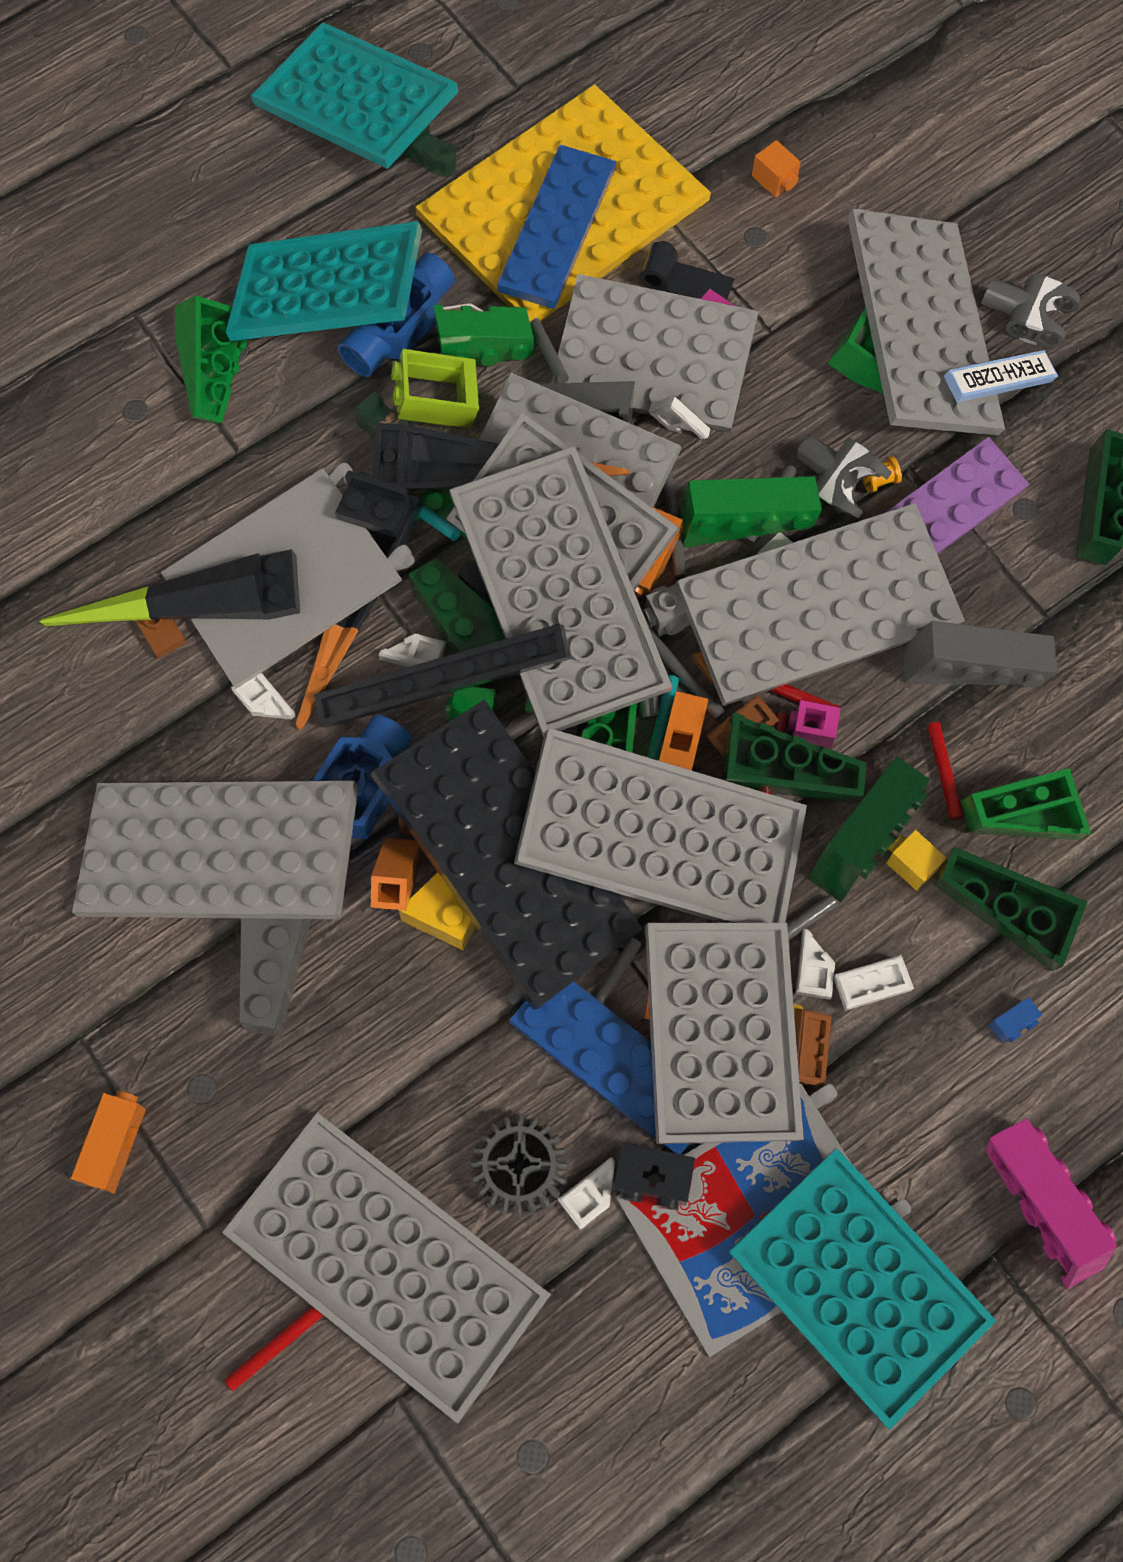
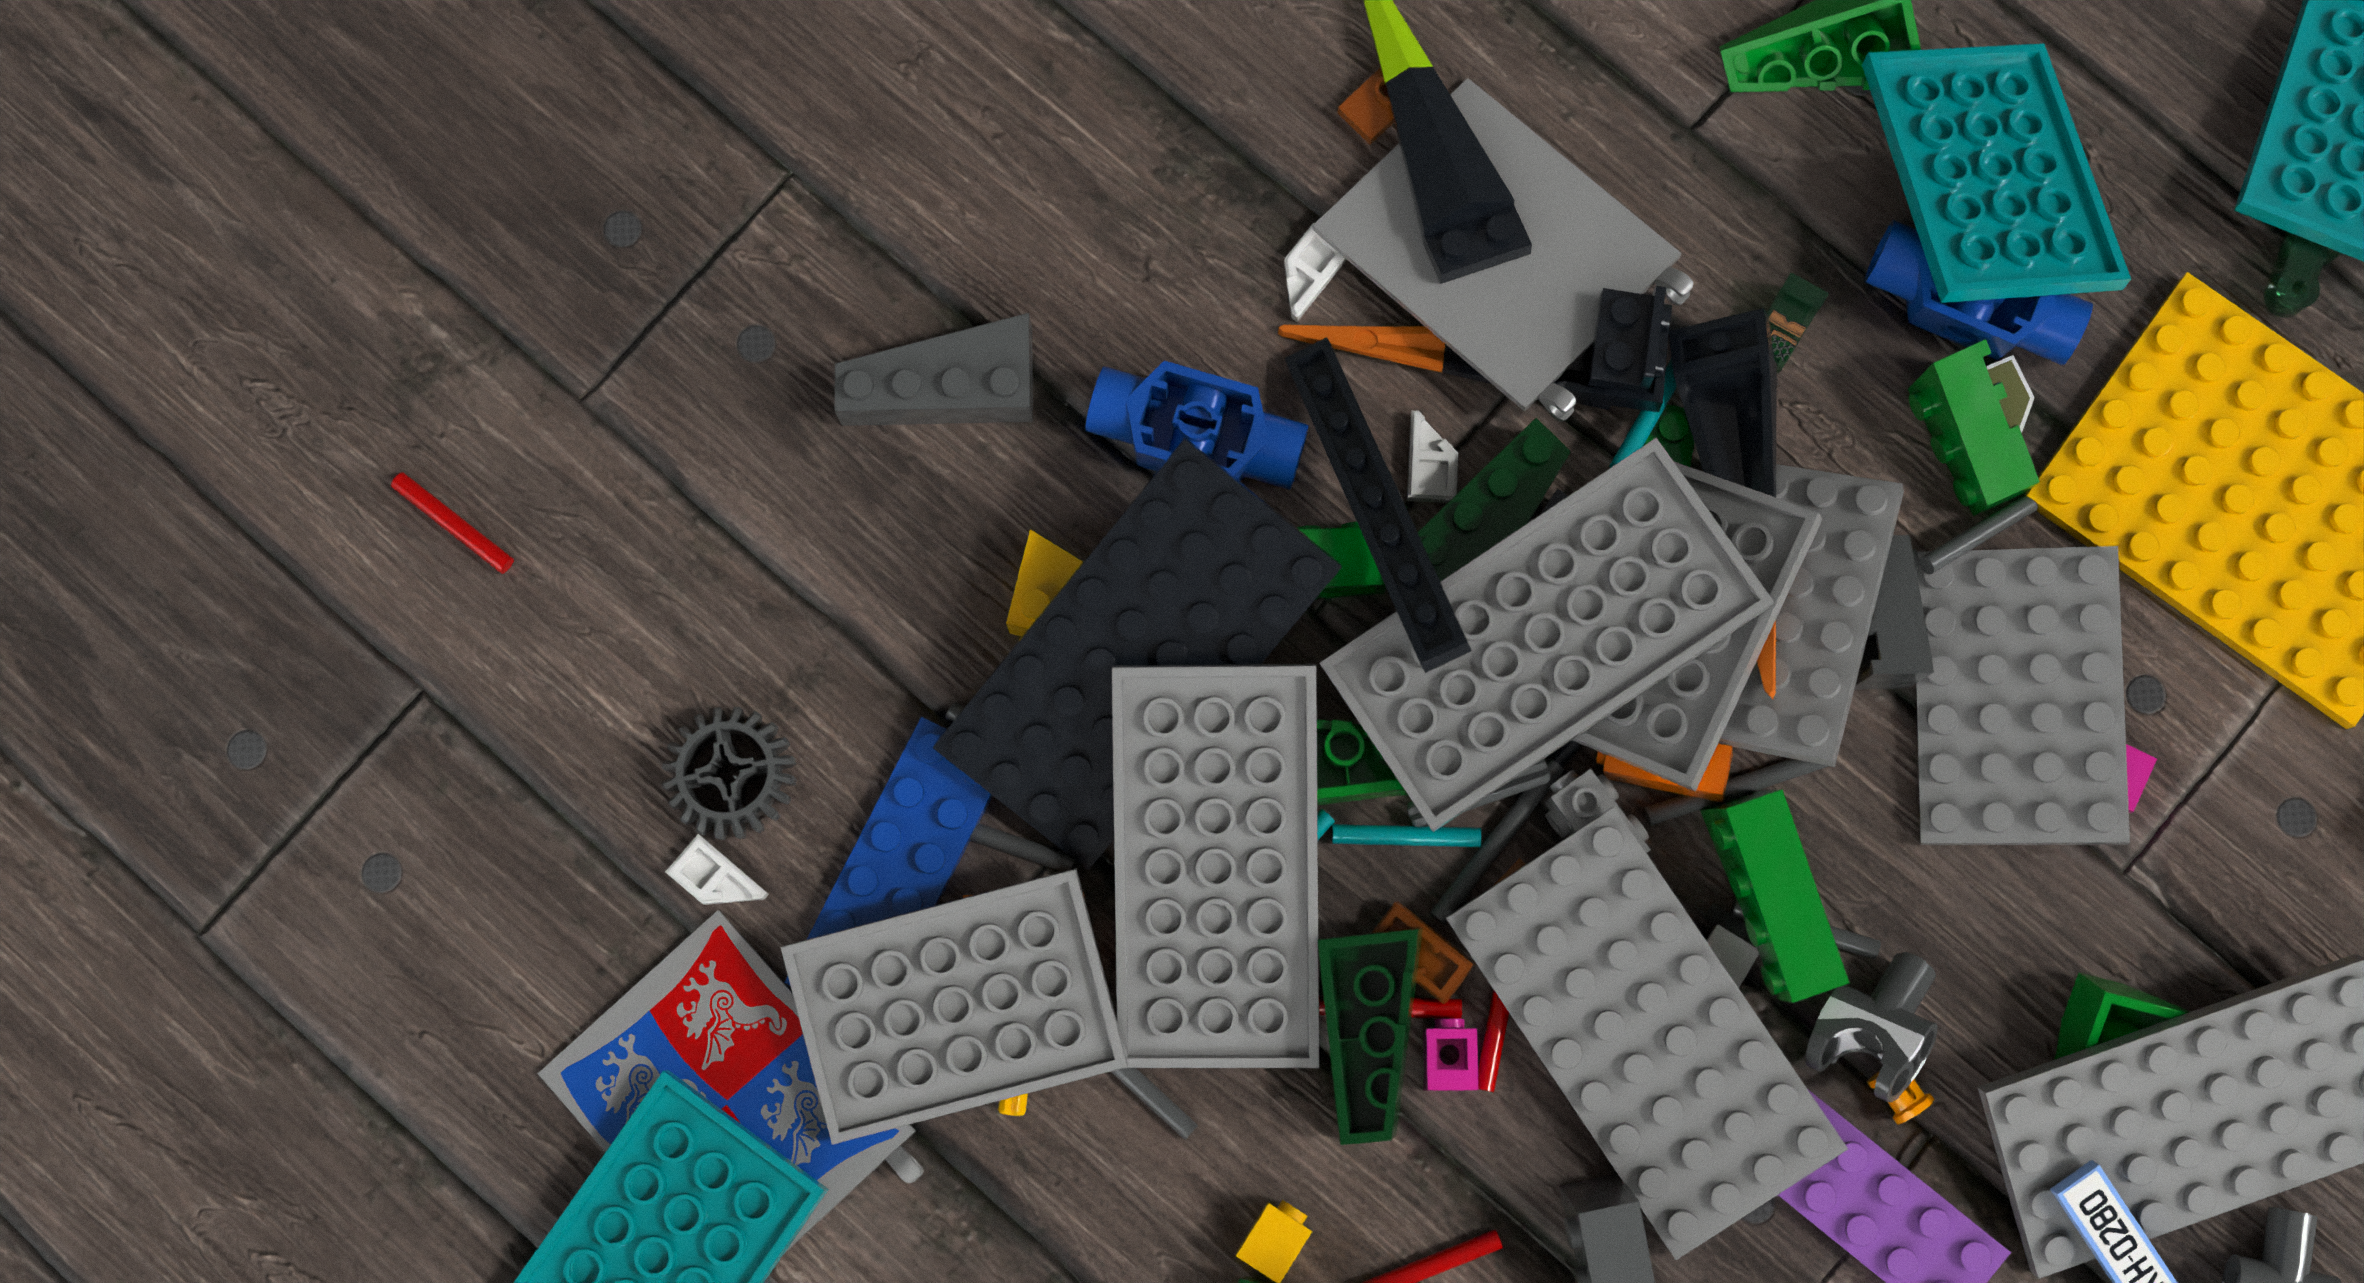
camera: 80 degrees right, 10 degrees up
(109, 1141) = (658, 248): orange brick -> none
(217, 850) = (1063, 272): light grey plate -> none
(387, 1266) = (573, 635): light grey plate -> none
(394, 874) = (1072, 509): orange brick -> none
(436, 368) = (1897, 374): lime window -> none
(556, 226) = (2210, 496): blue plate -> none
(638, 1160) = (761, 927): black brick -> none
(664, 273) = (2176, 716): black door -> none
(677, 416) = (1914, 758): white tile -> none
(683, 730) = (1383, 867): orange brick -> none
(812, 1046) = (968, 1135): dark orange plate -> none
(814, 970) = (1084, 1123): white tile -> none
(870, 829) = (1308, 1167): dark green wedge -> none
(873, 982) = (1079, 1209): white plate -> none

